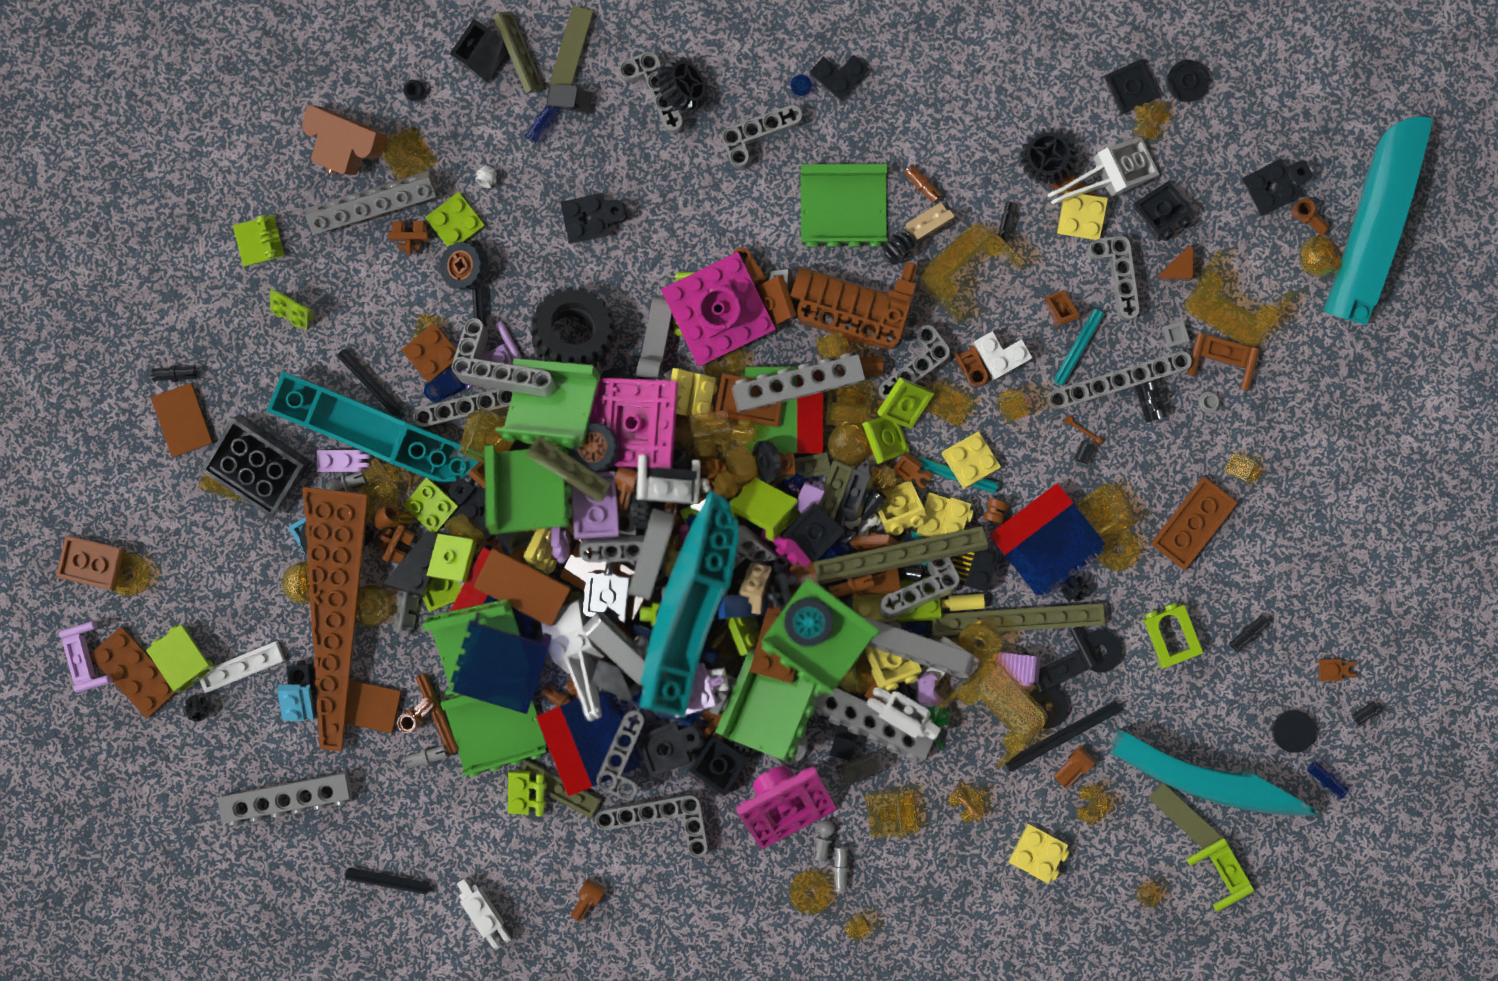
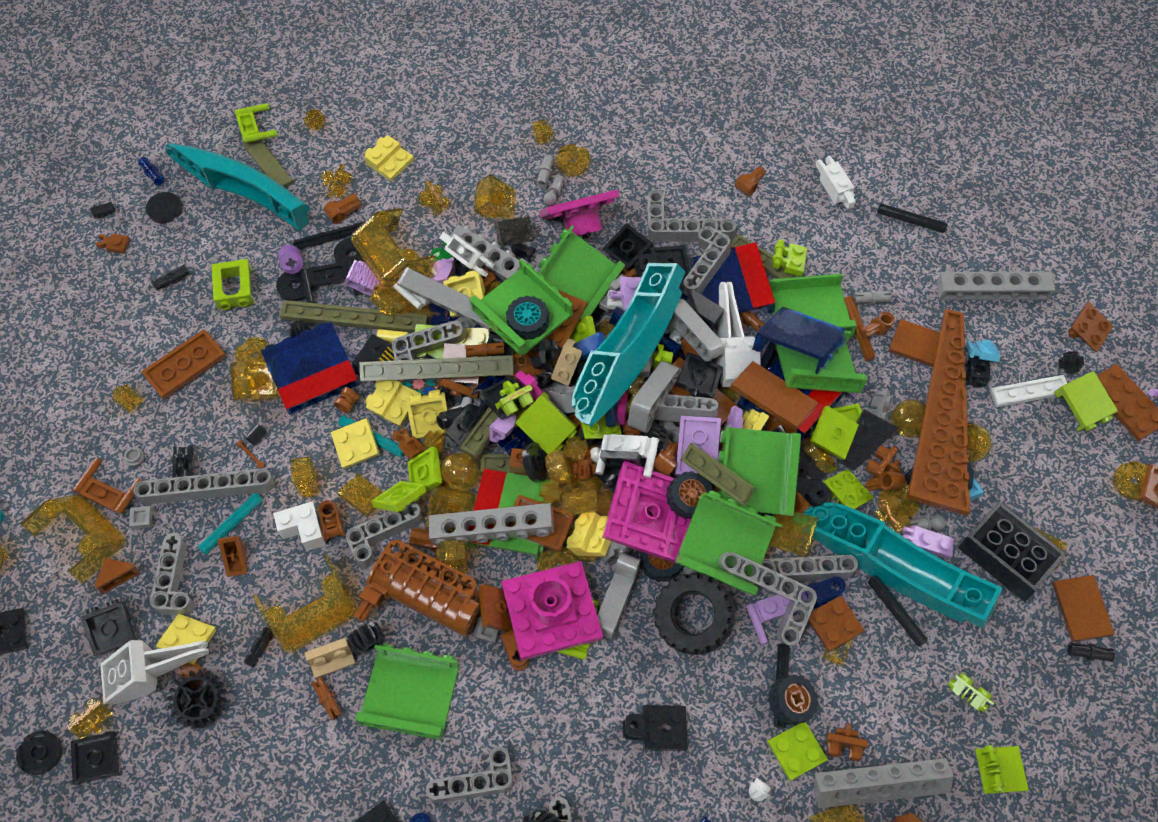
camera: 170 degrees left, 25 degrees down
(174, 761) = (1091, 327): none -> dark orange hinge
(805, 525) = (507, 403): none -> lime hips
(1112, 676) = (290, 266): none -> medium lavender piece

